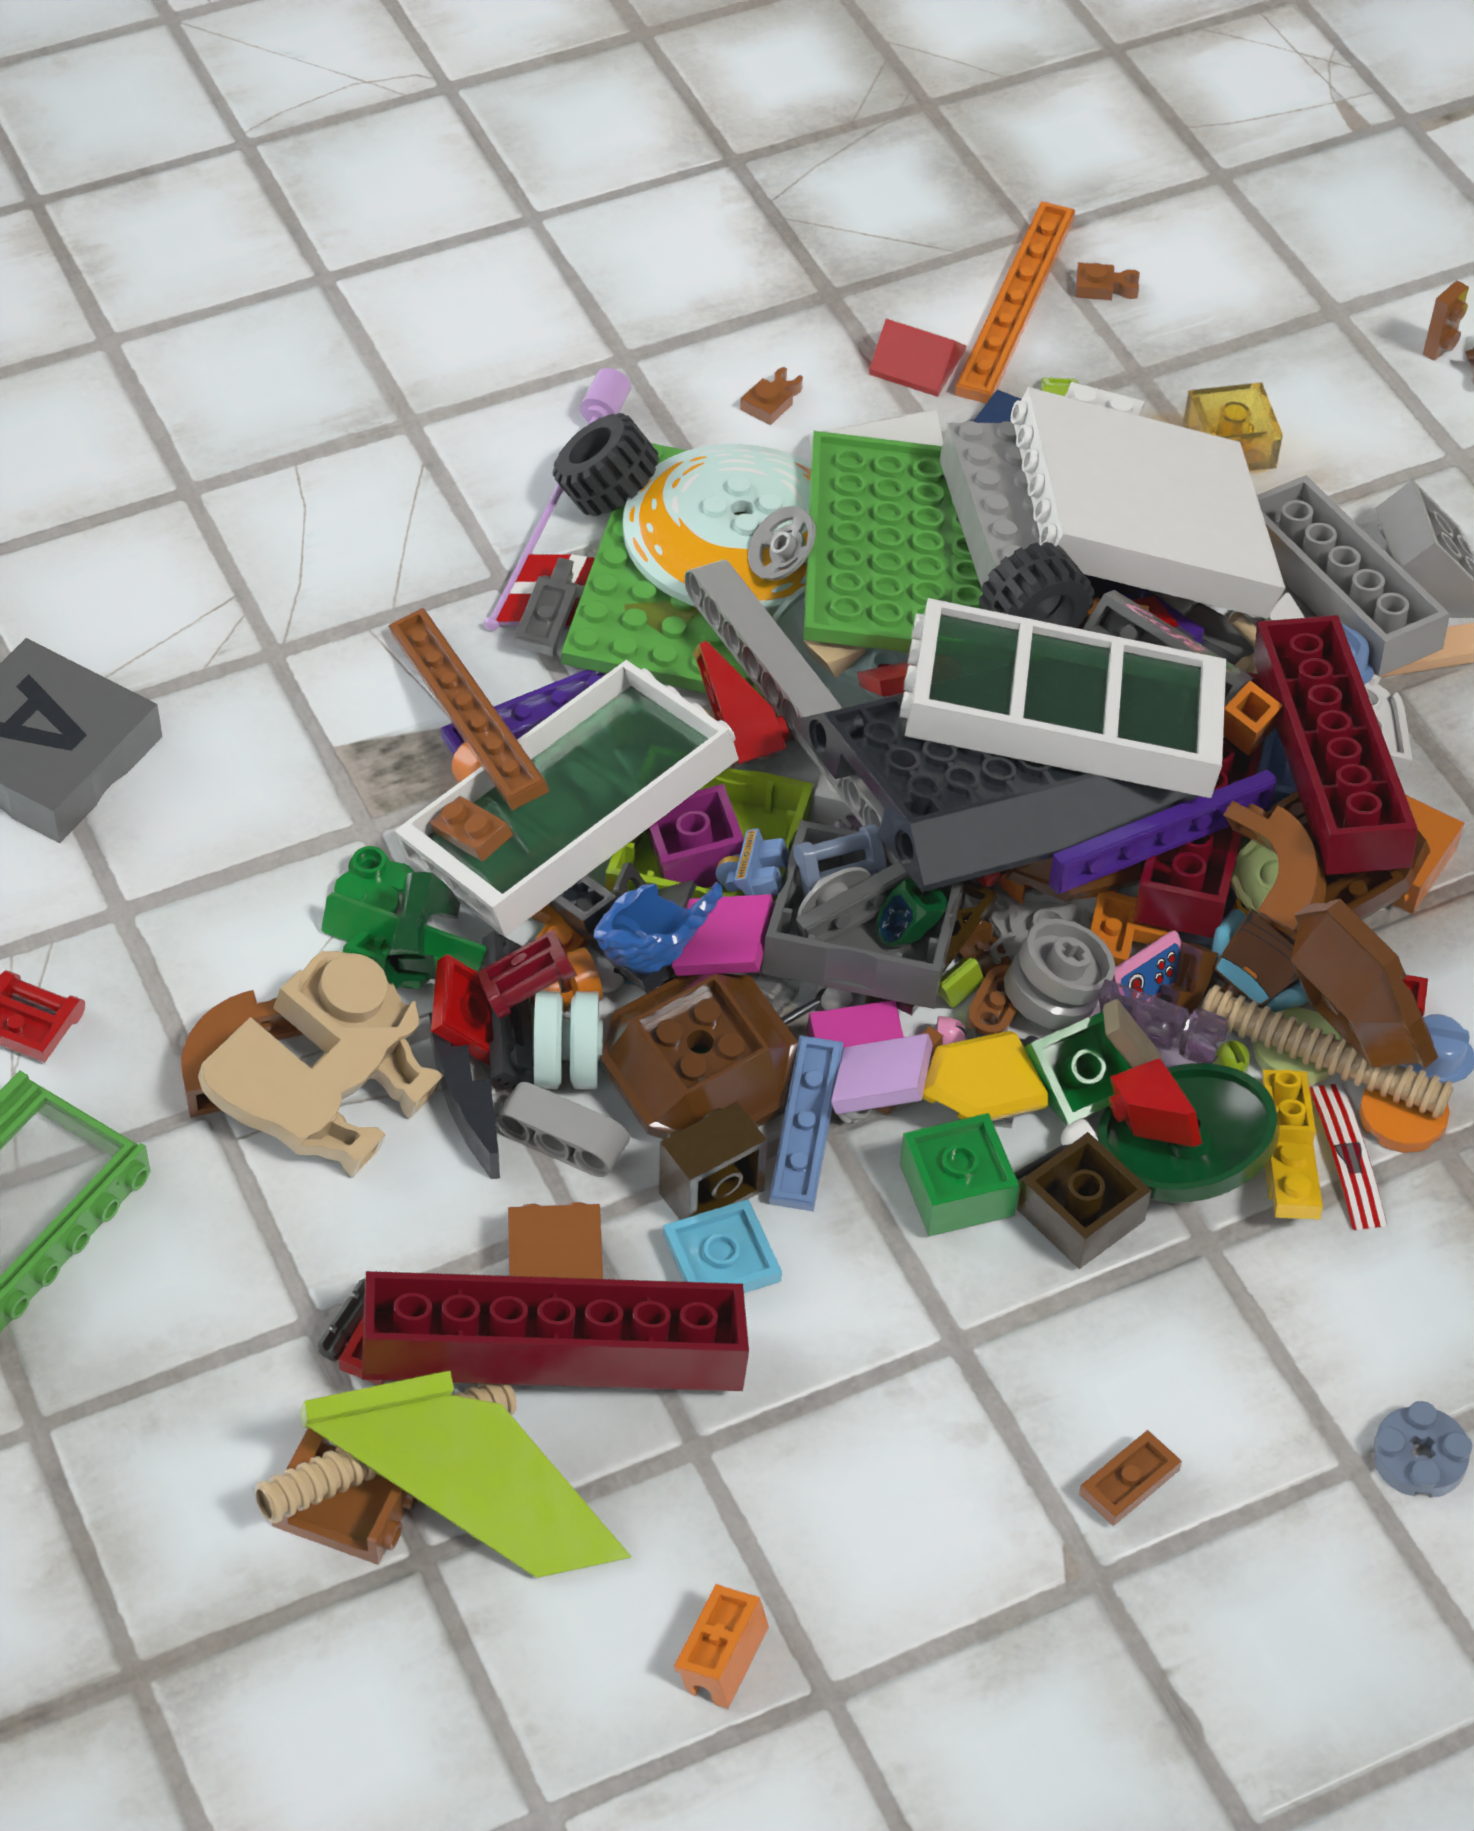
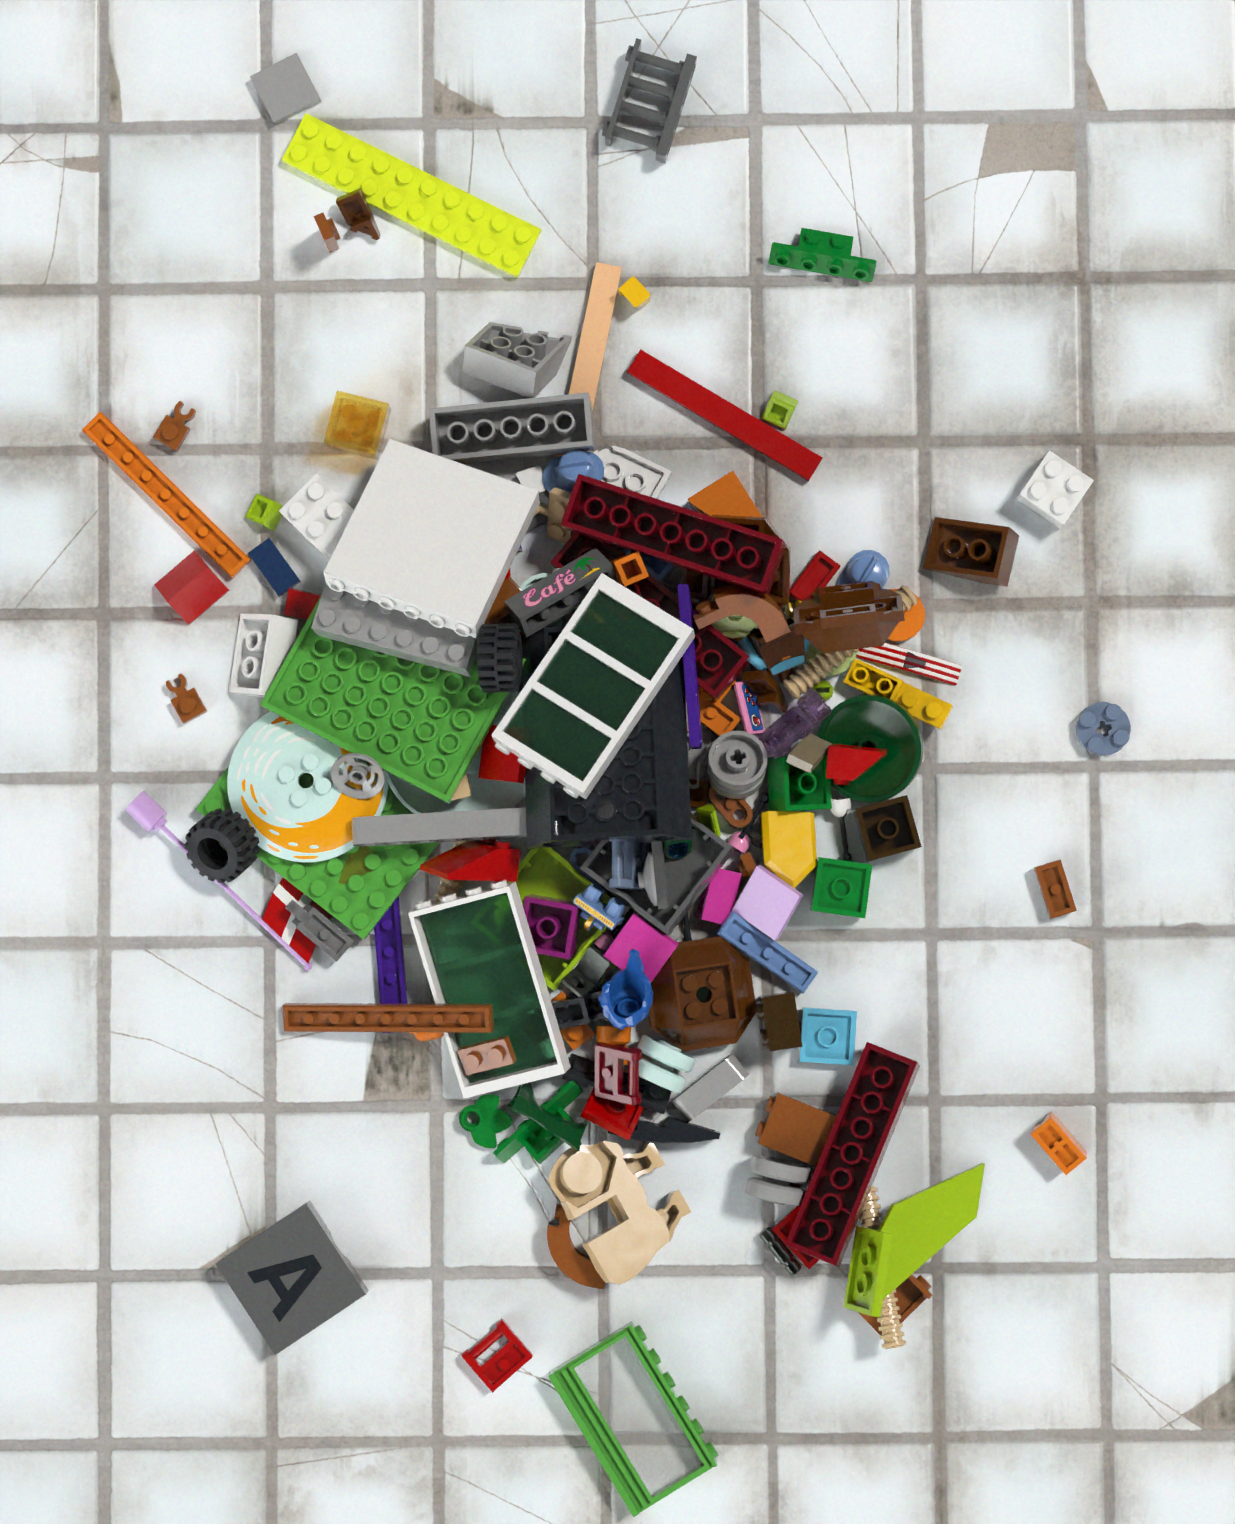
camera: 55 degrees left, 35 degrees up
(465, 1250) = (776, 1185): none -> light grey wheel

